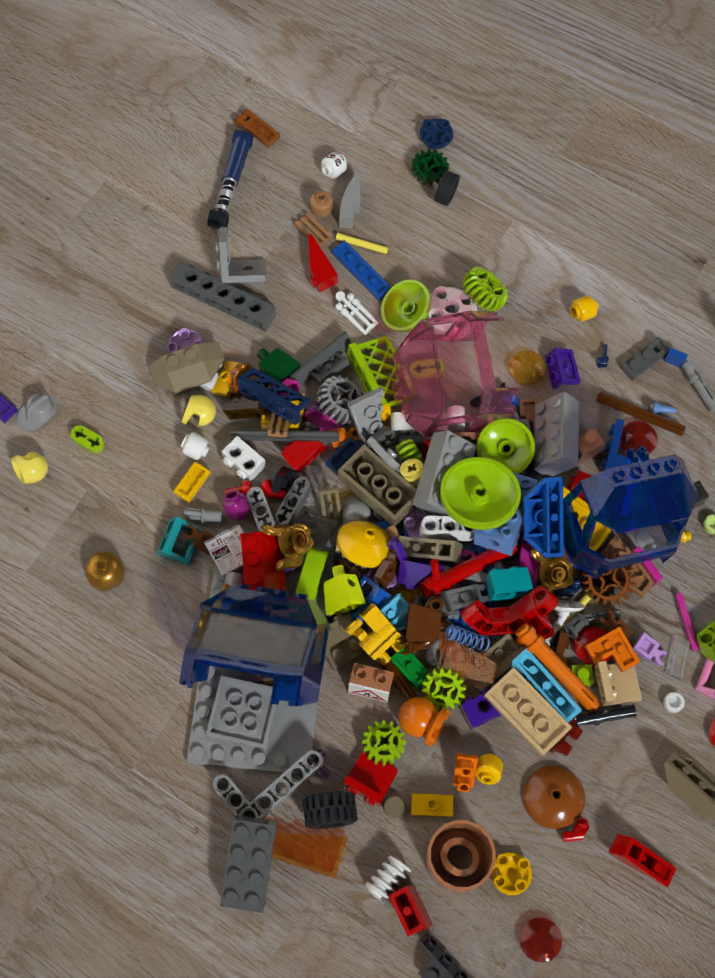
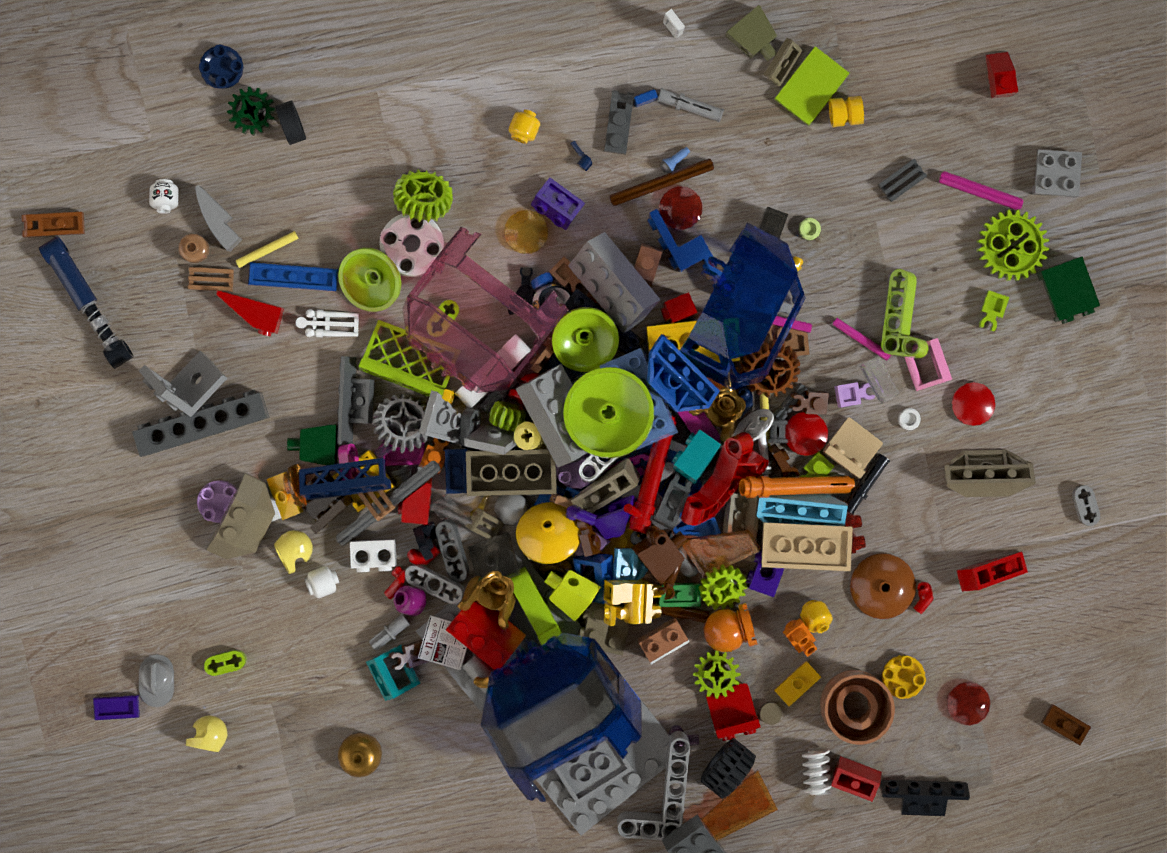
camera: 45 degrees left, 20 degrees up
(192, 482) = (351, 614): yellow plate -> none
(455, 631) = (686, 543): medium blue piece -> none
(613, 644) = (822, 422): orange plate -> none

